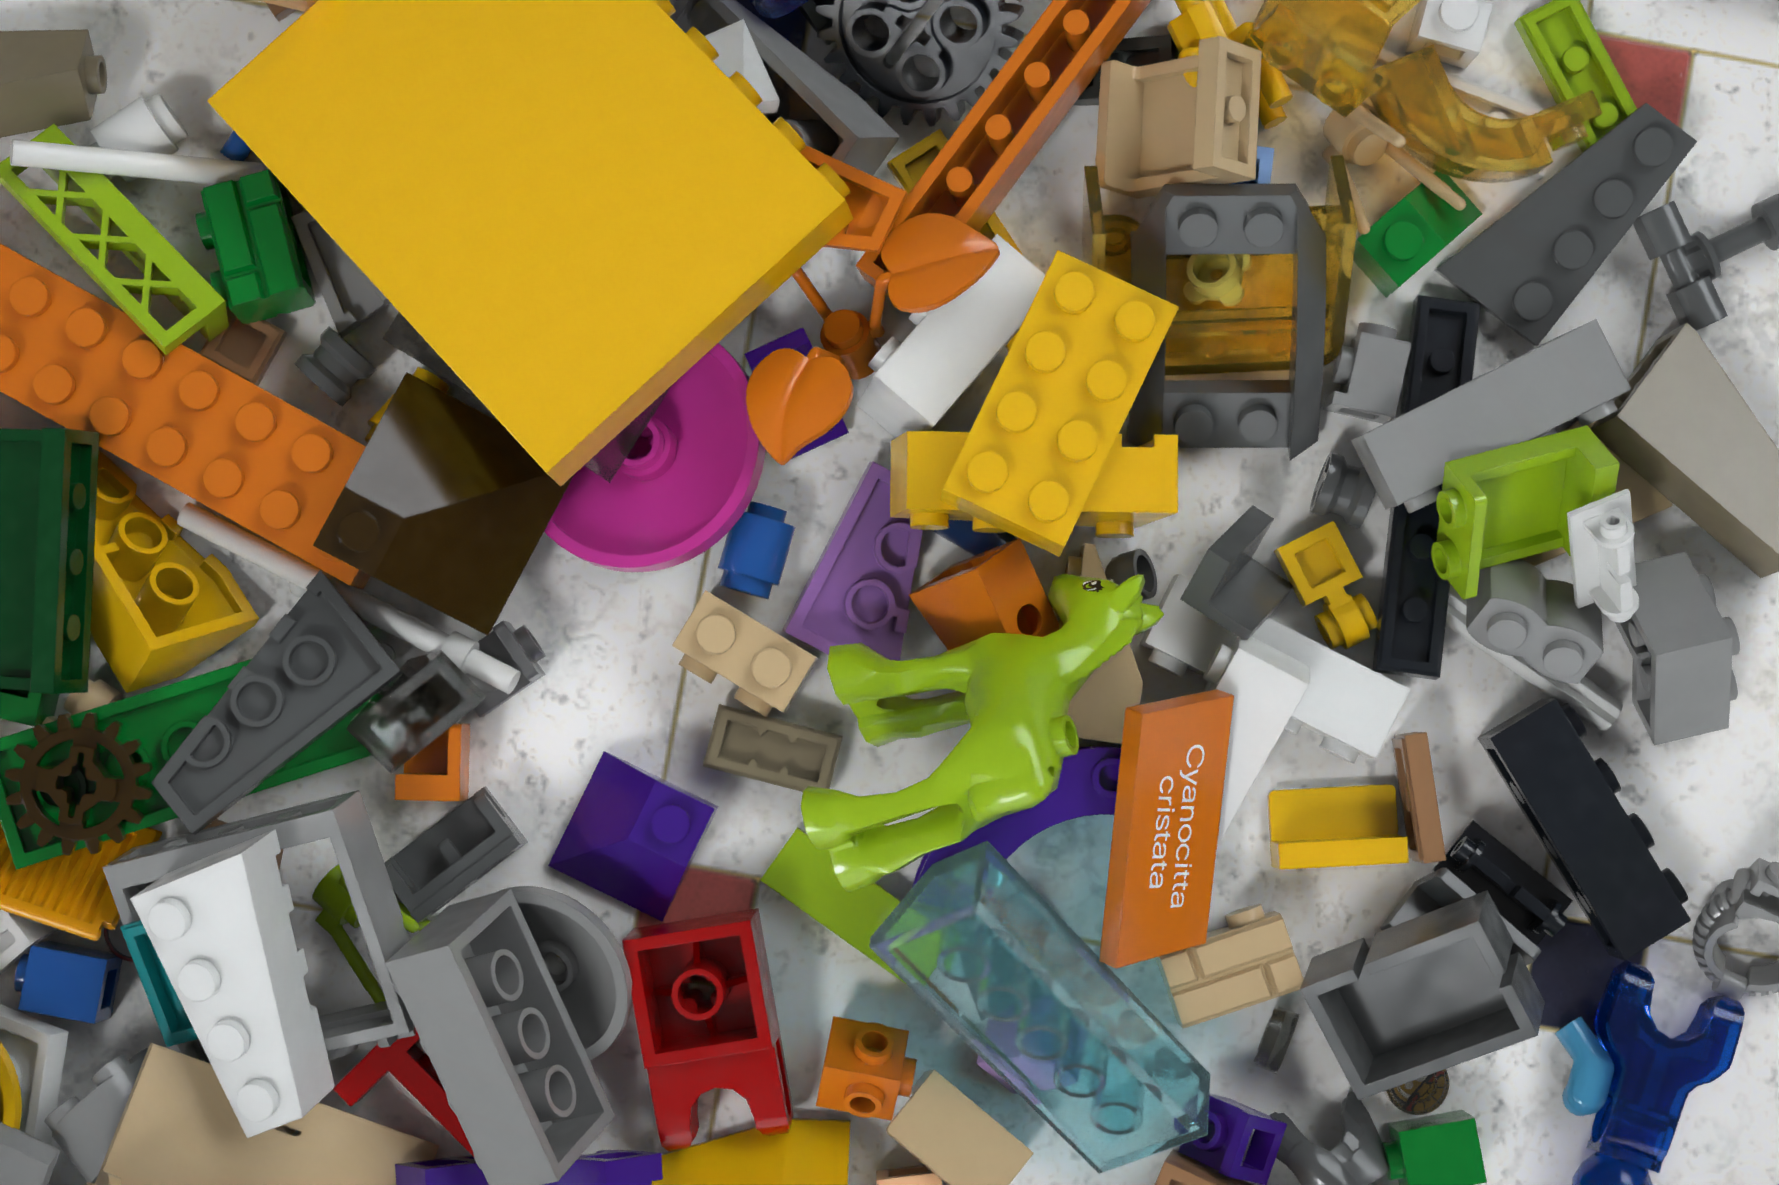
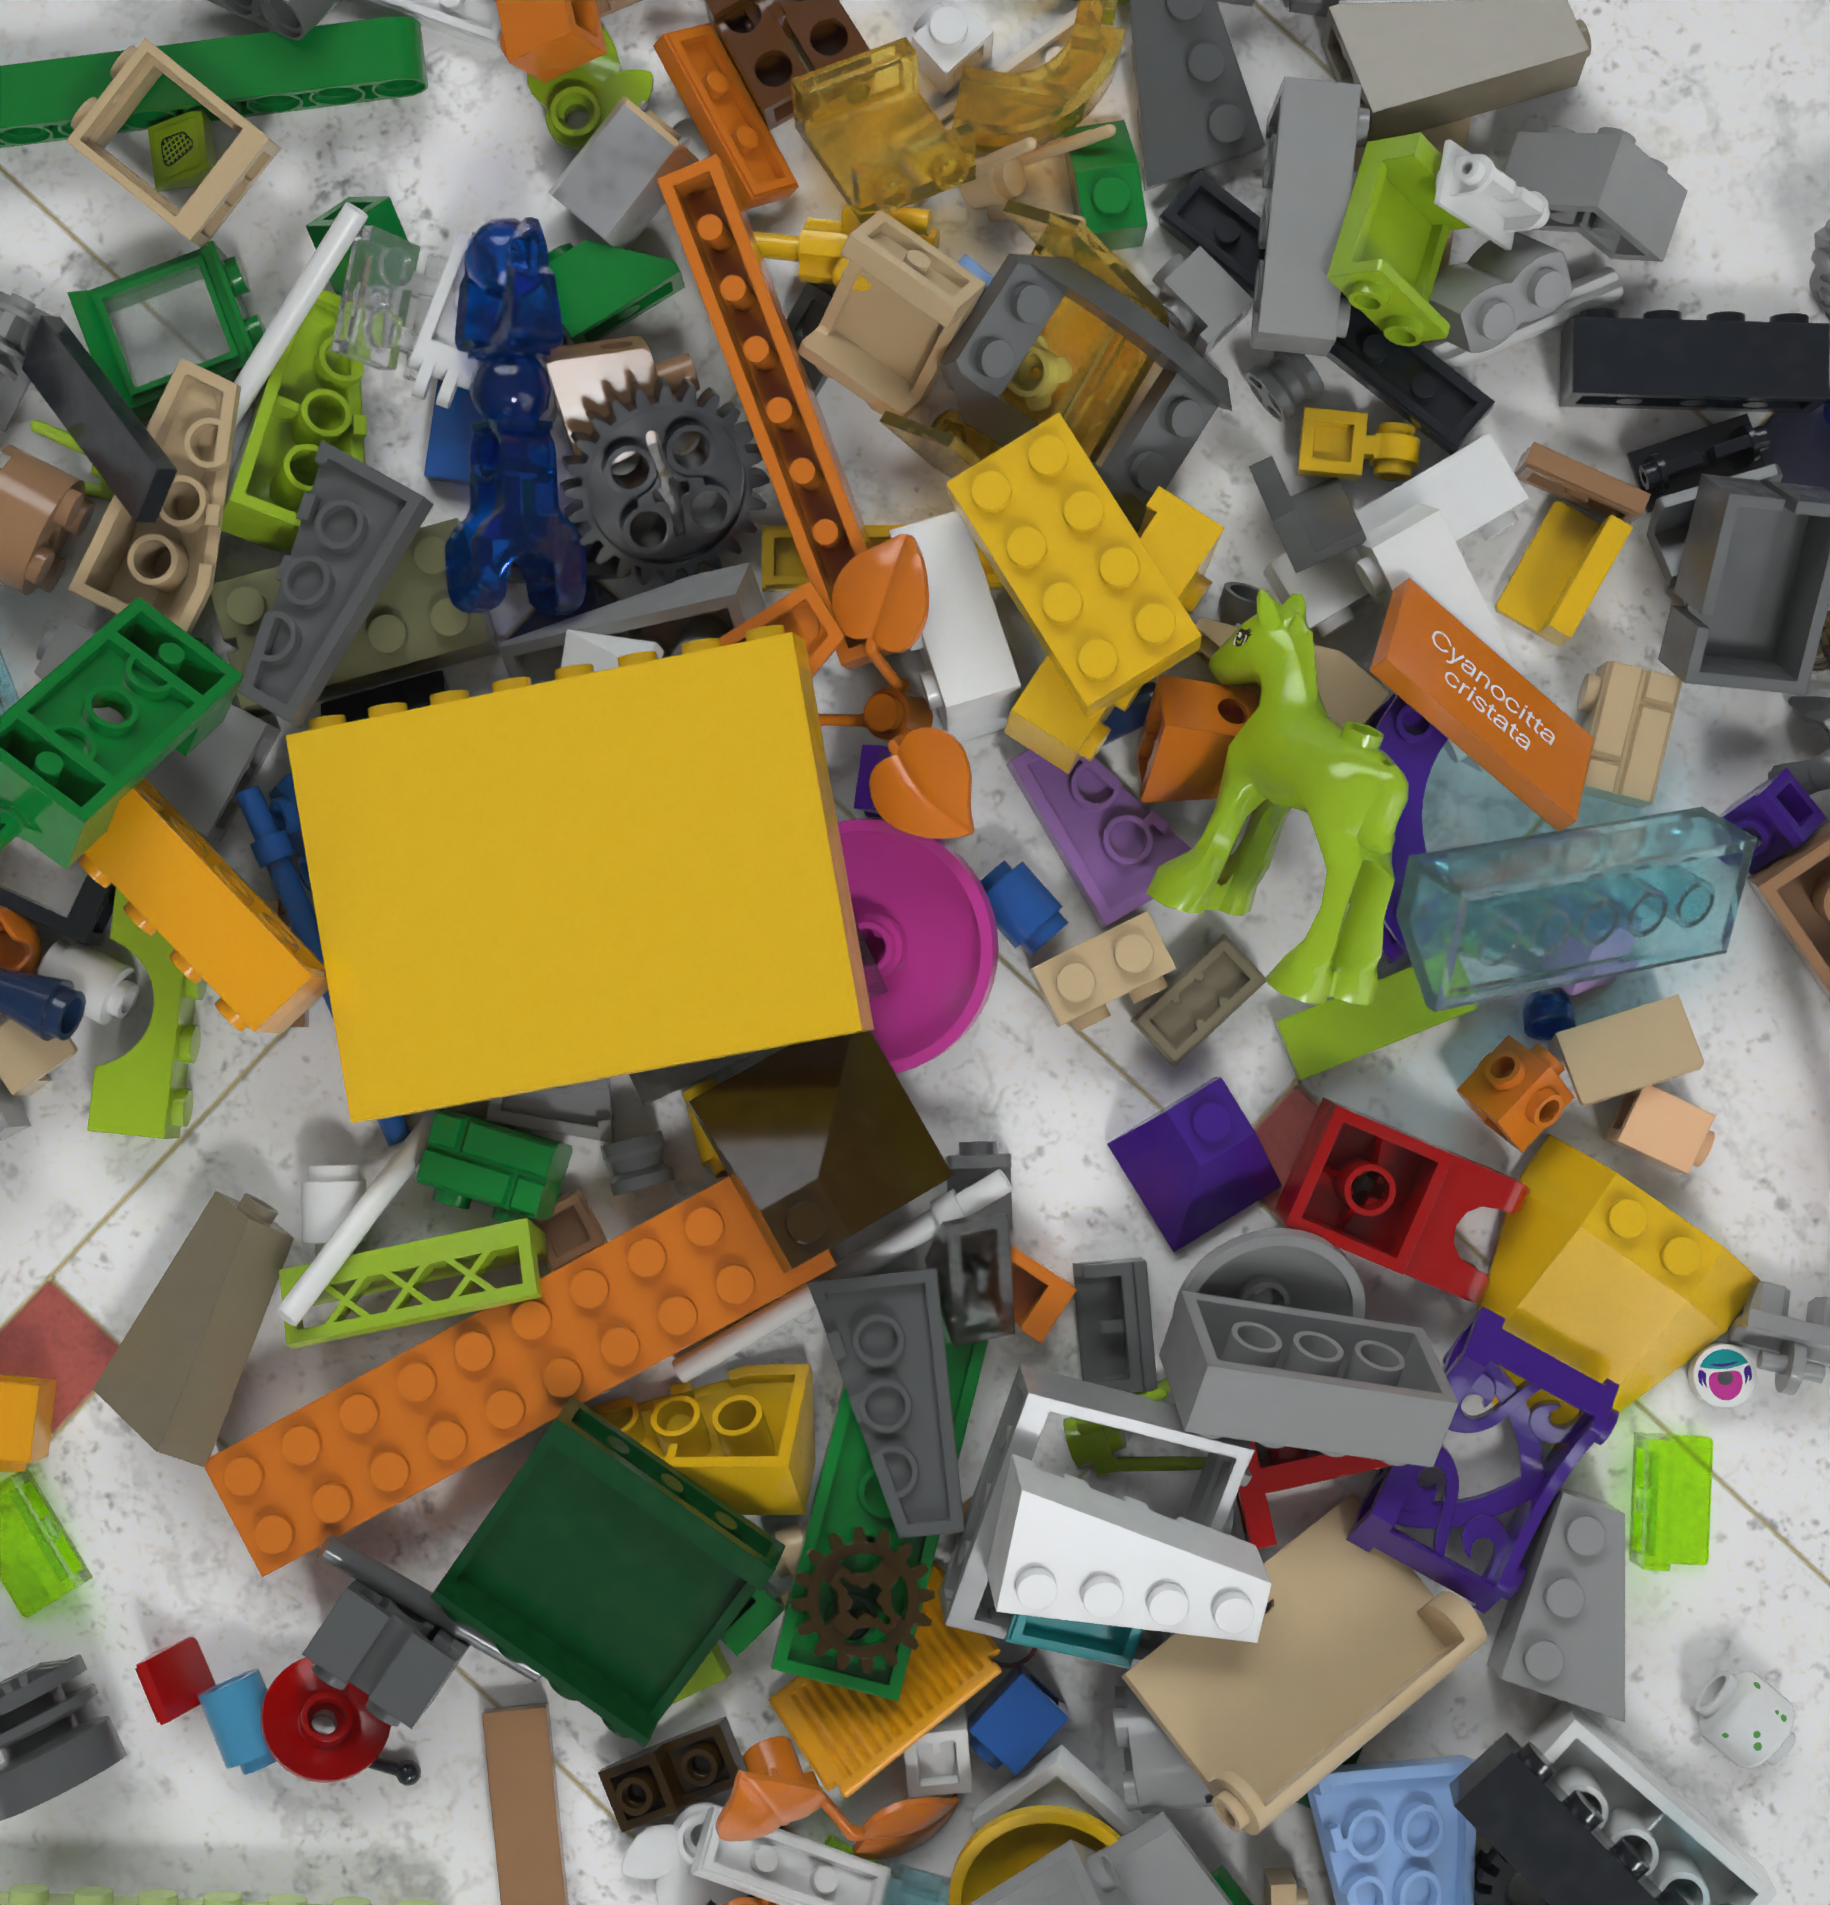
camera: 50 degrees left, 0 degrees up
(949, 1055) = (1547, 1014): none -> clear blue hinge
(1276, 1039) = (1708, 733): clear smoke tile -> none

